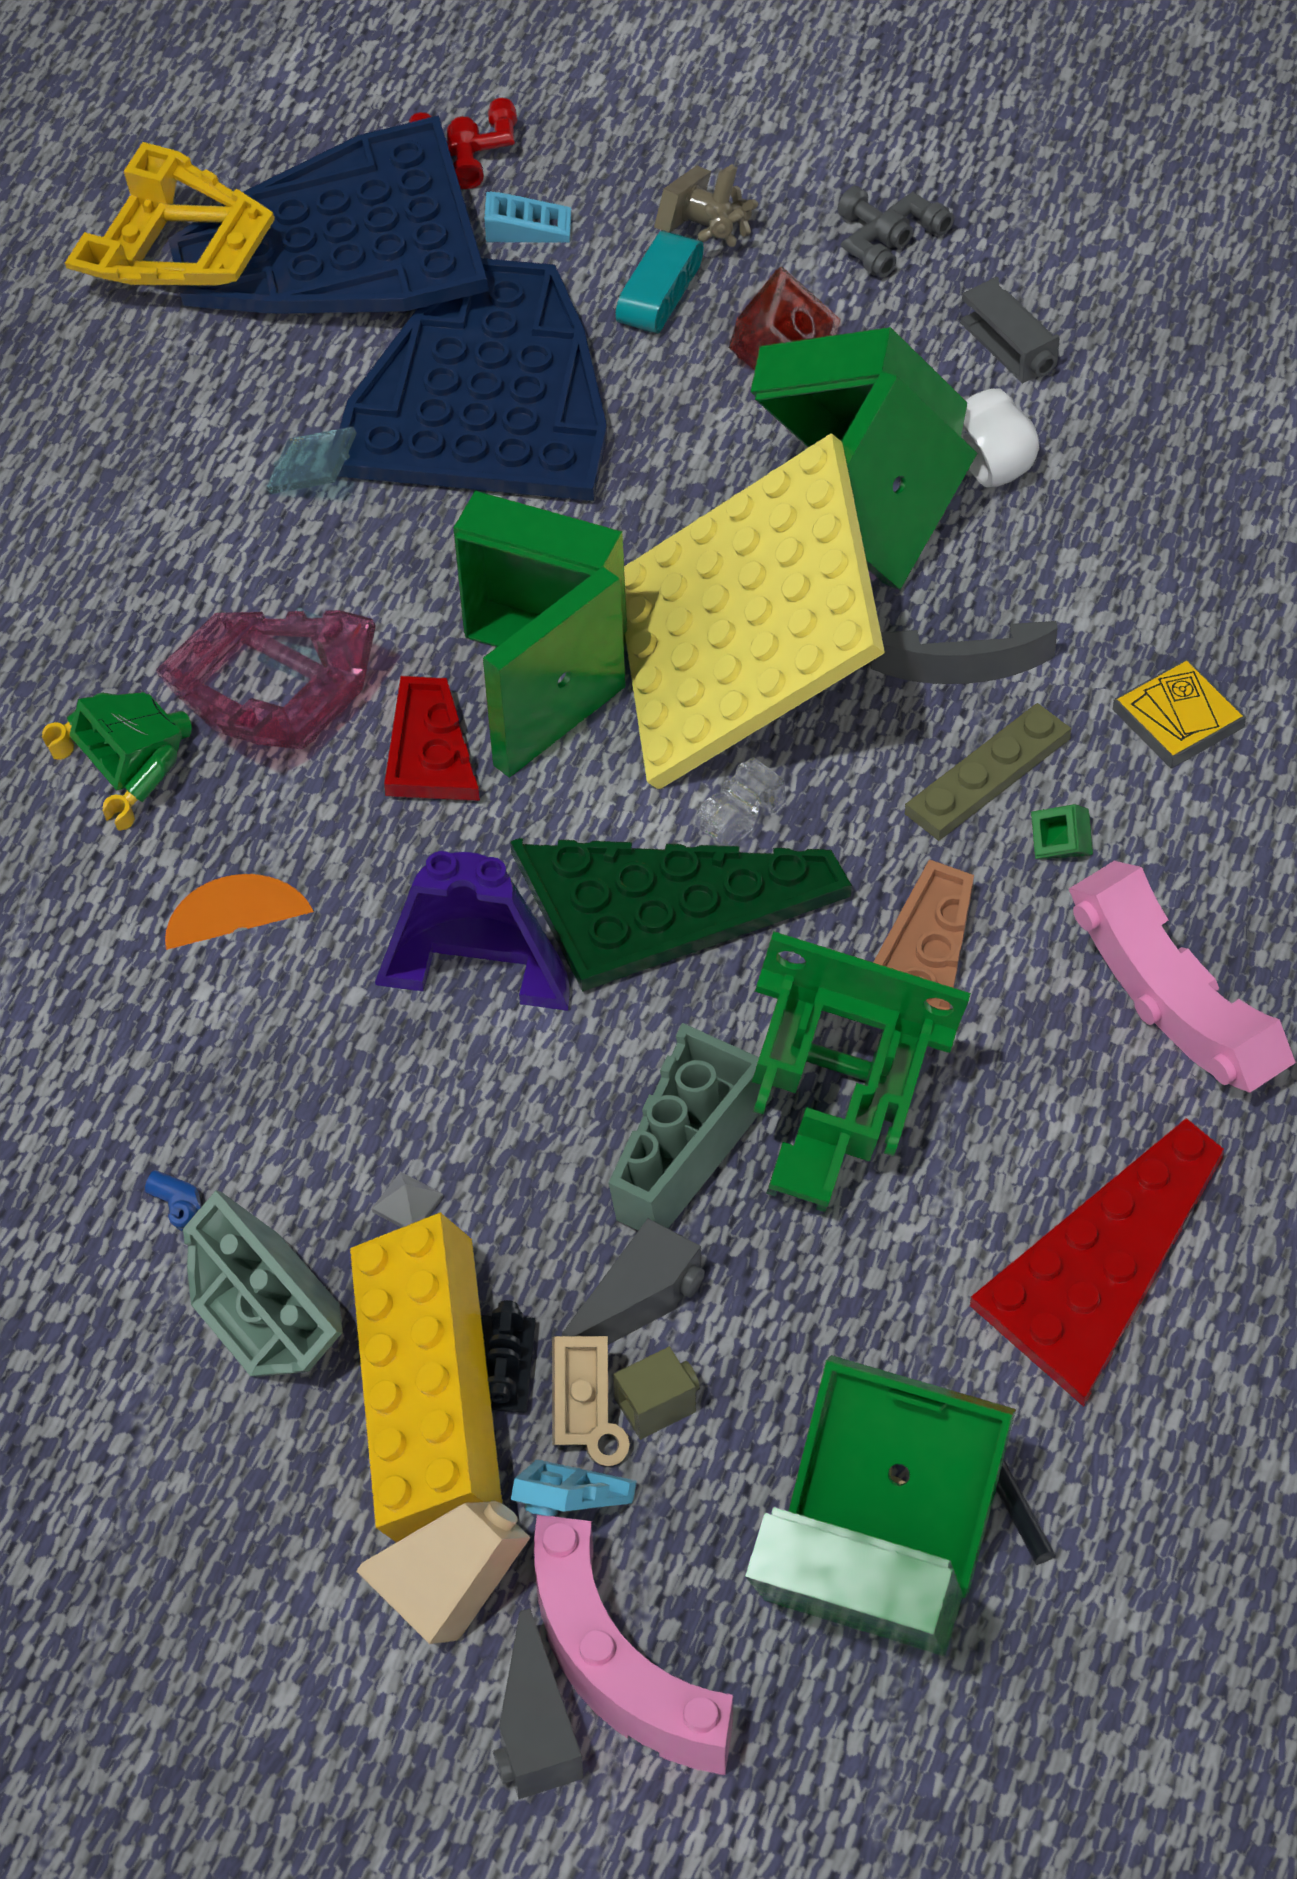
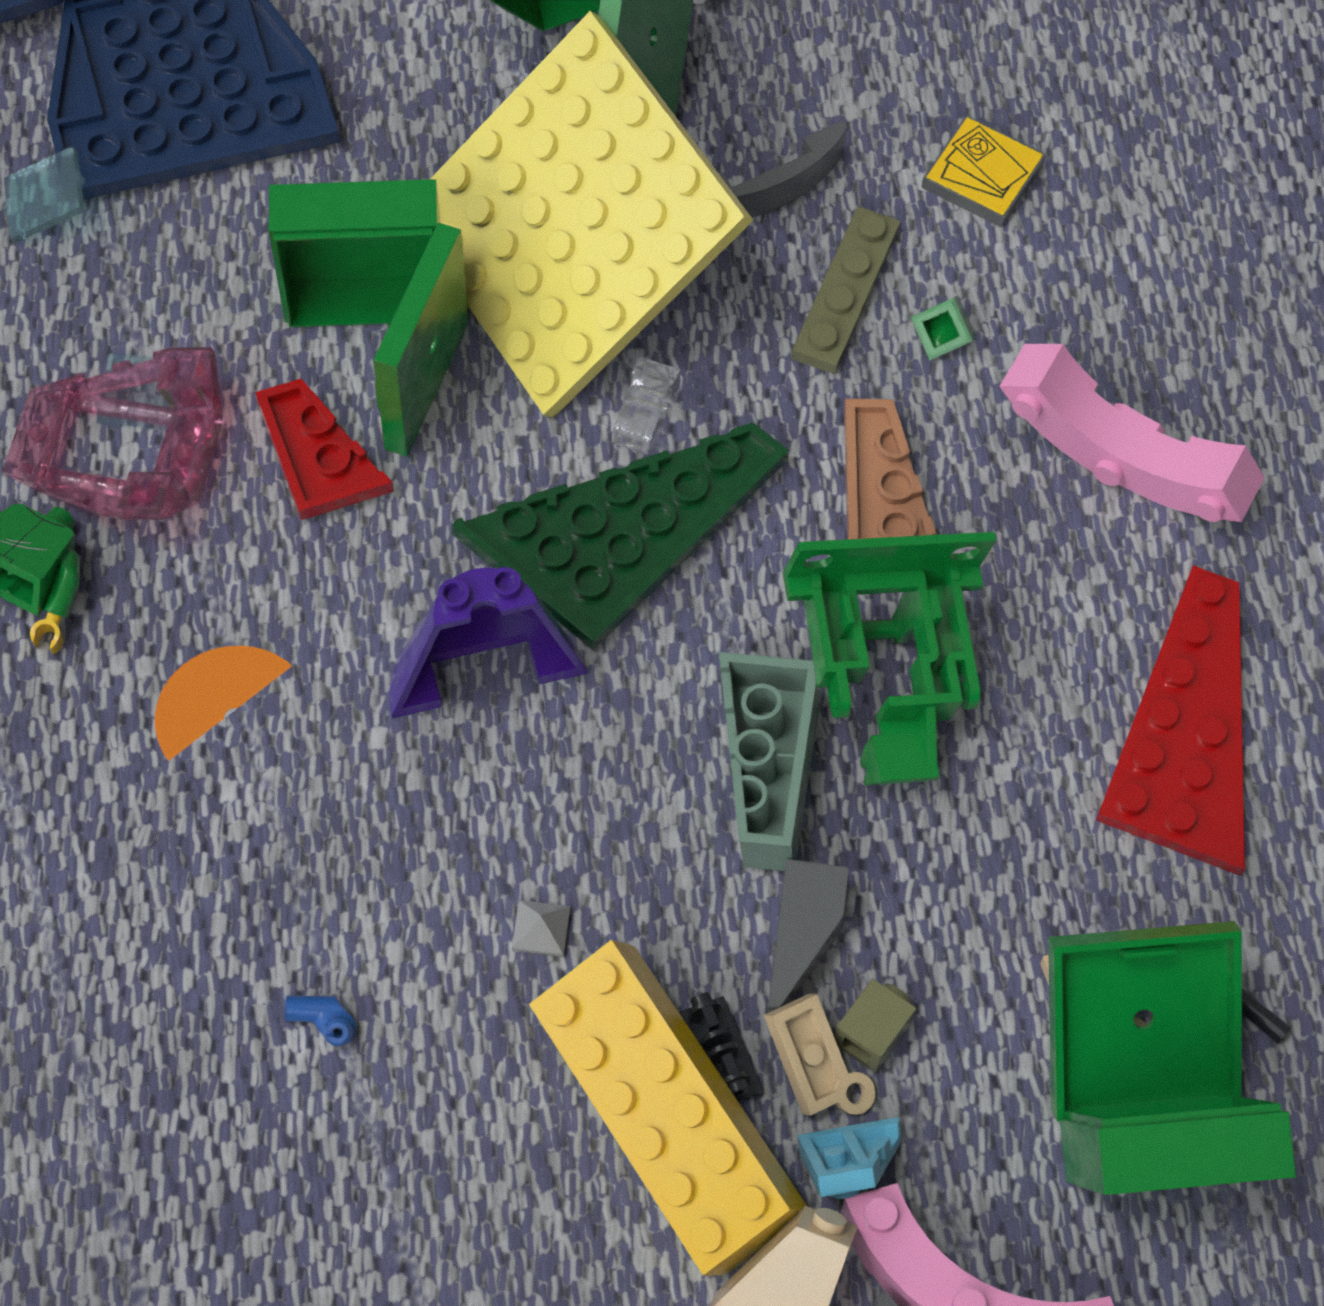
camera: 30 degrees left, 10 degrees up
(257, 1291) = (462, 1084): sand green wedge -> none

